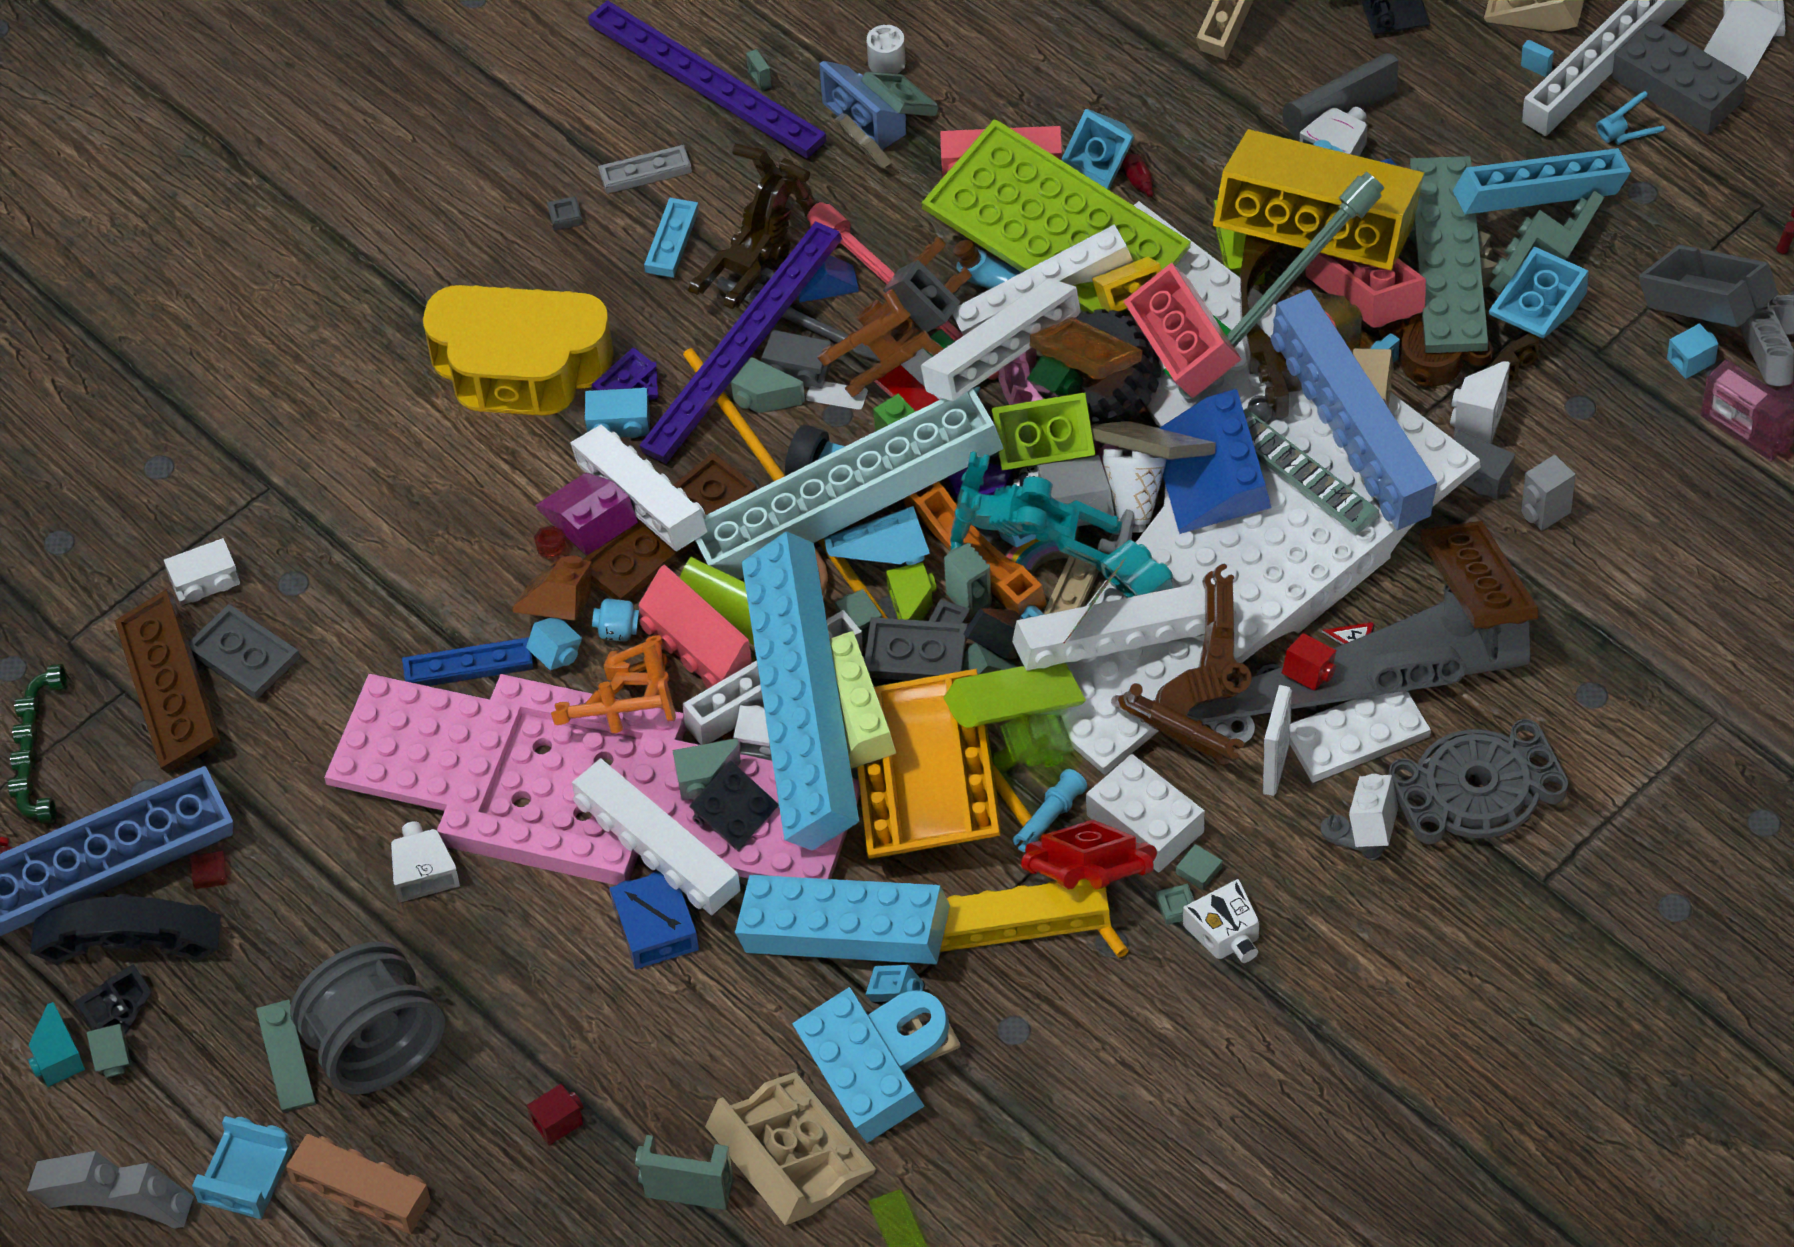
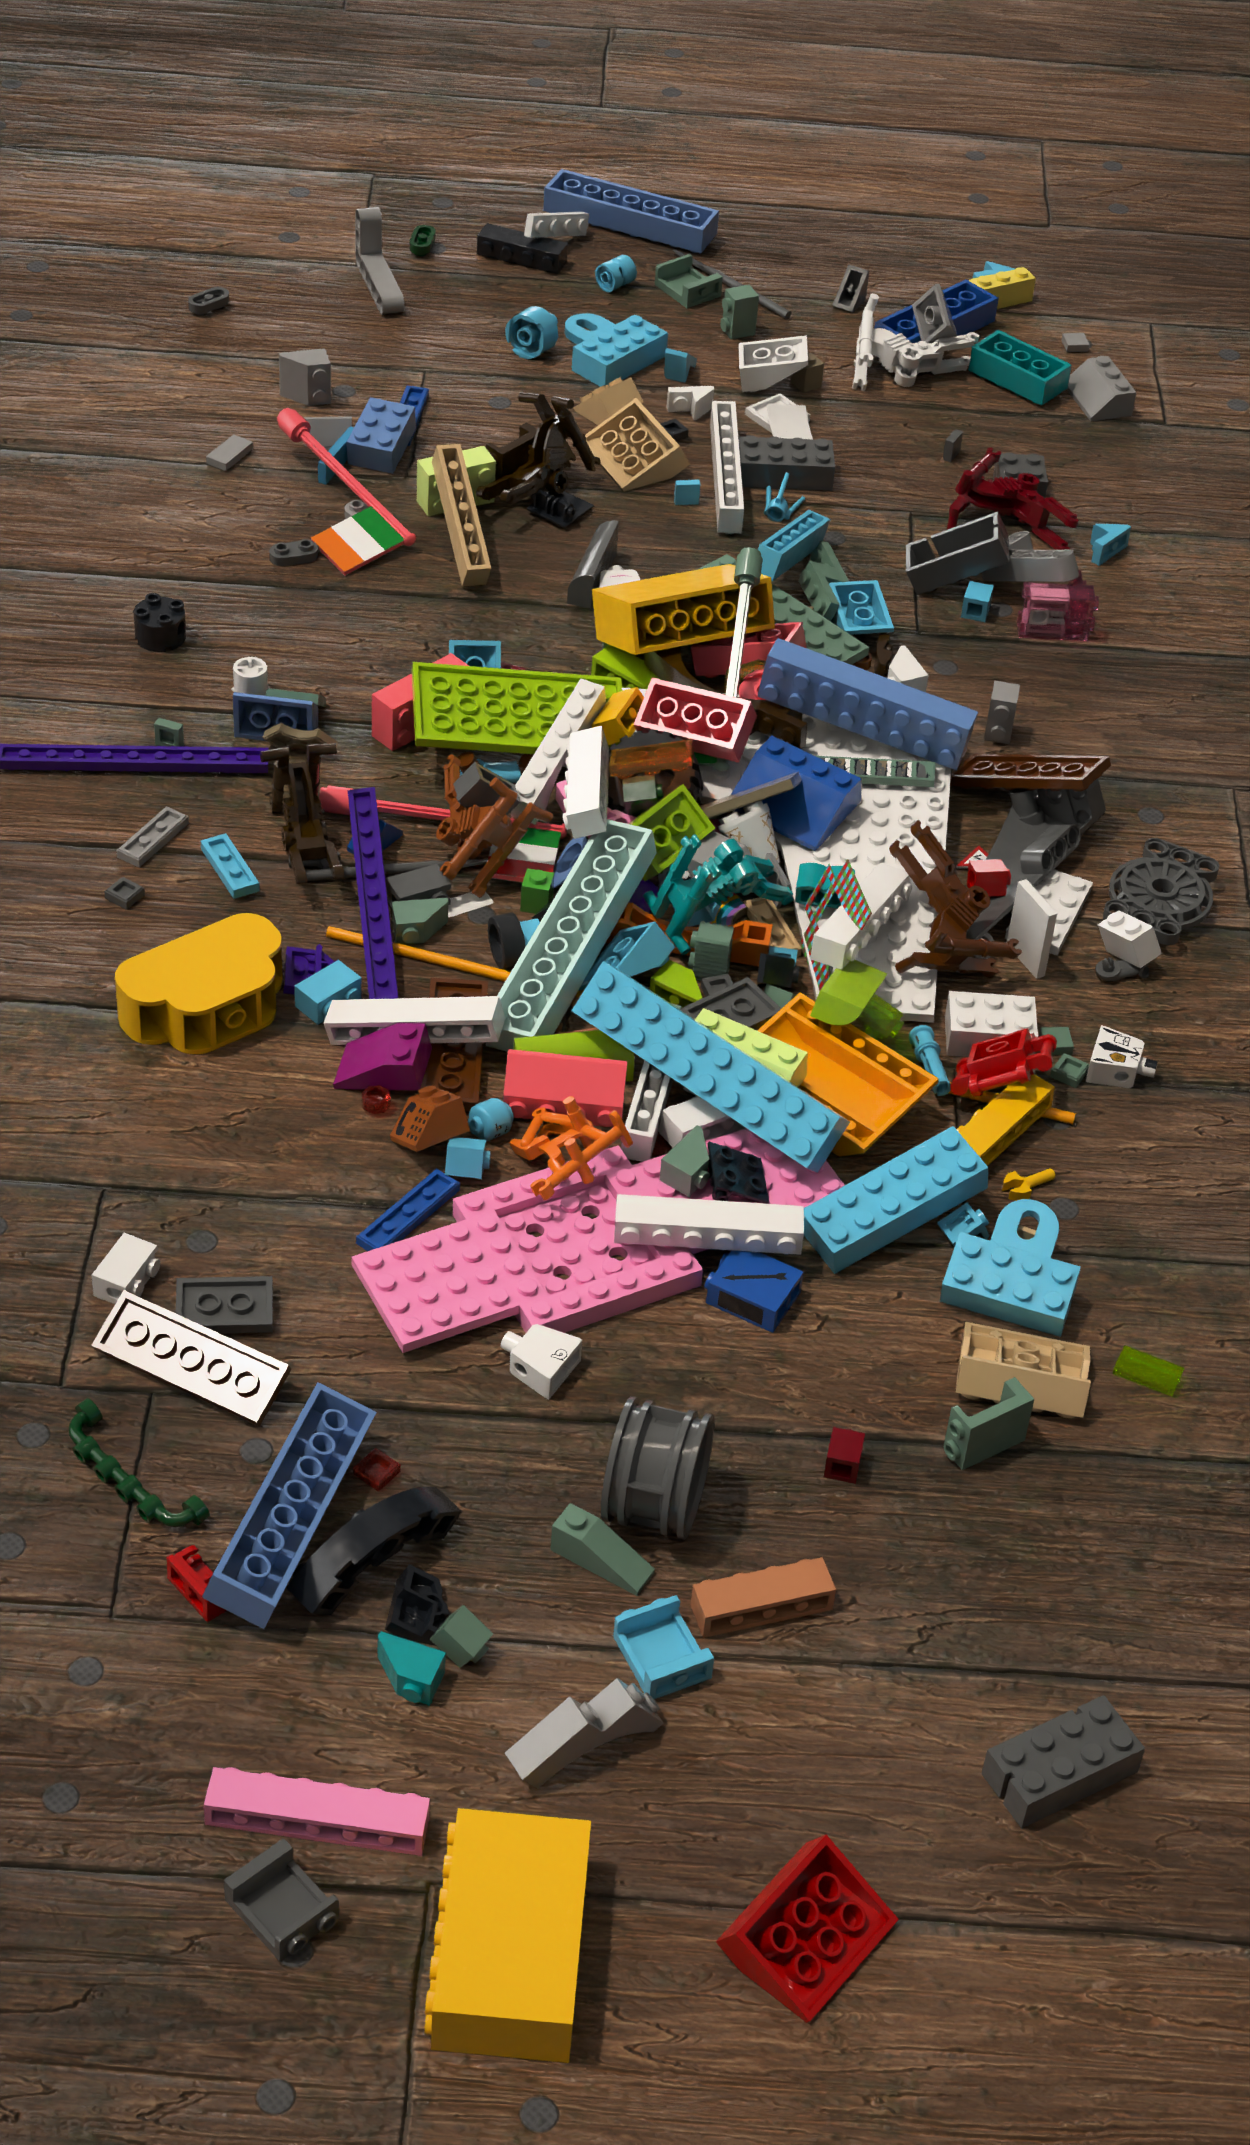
camera: 50 degrees left, 10 degrees down
(1002, 983) = (1023, 1184): none -> yellow bar

